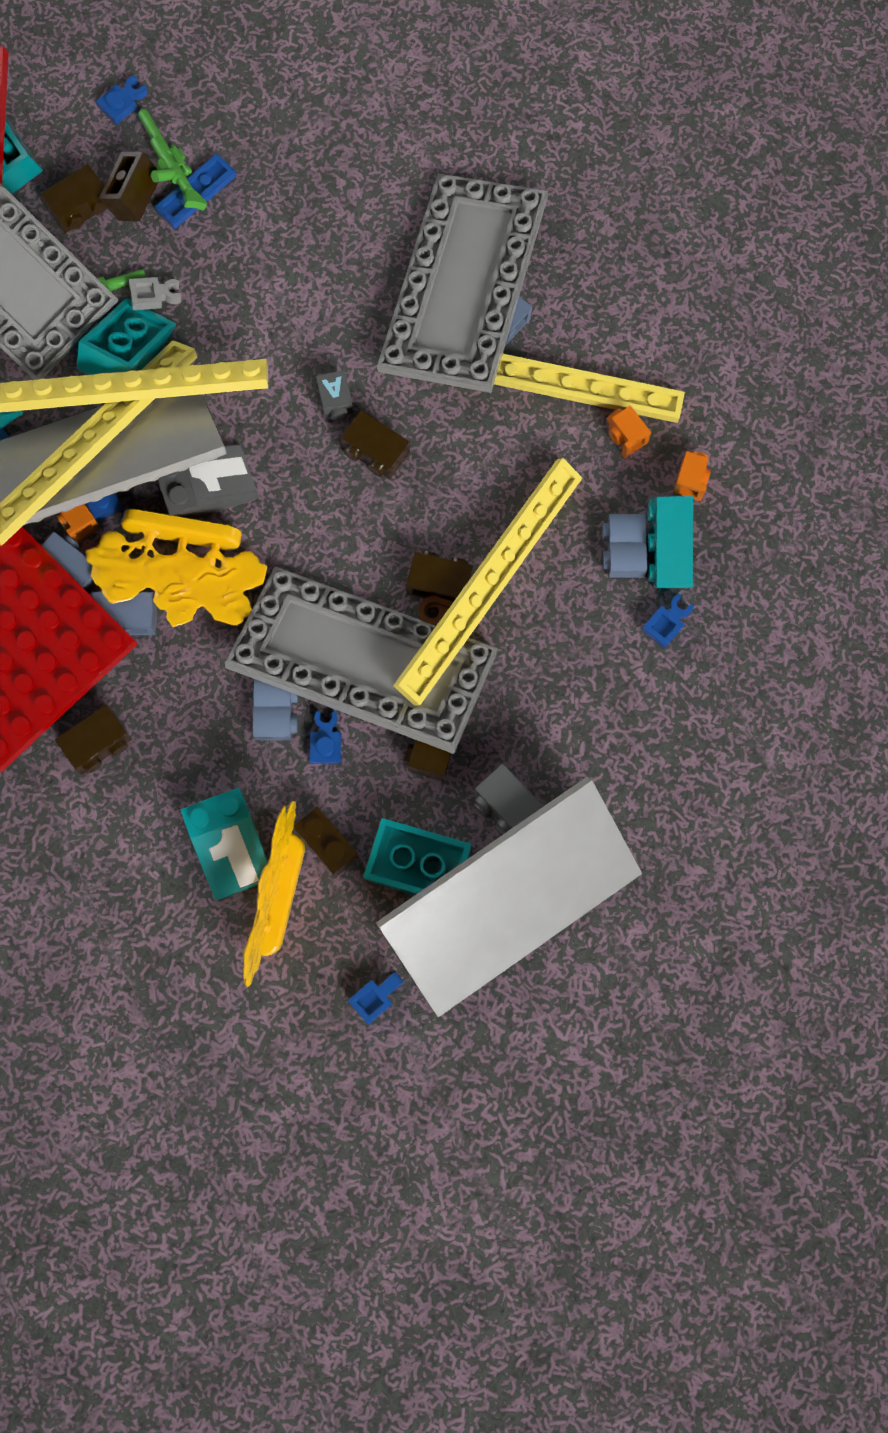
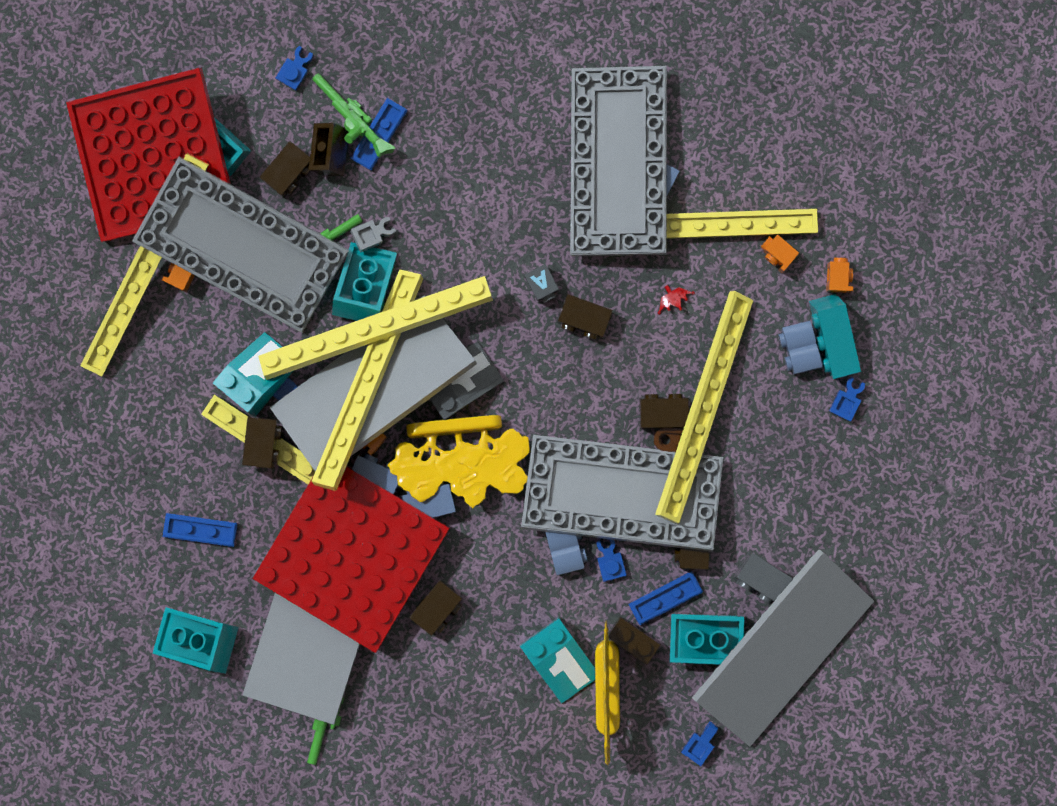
camera: 10 degrees left, 10 degrees up
(381, 803) = (665, 598): none -> blue tile
(487, 453) = (673, 298): none -> red piece

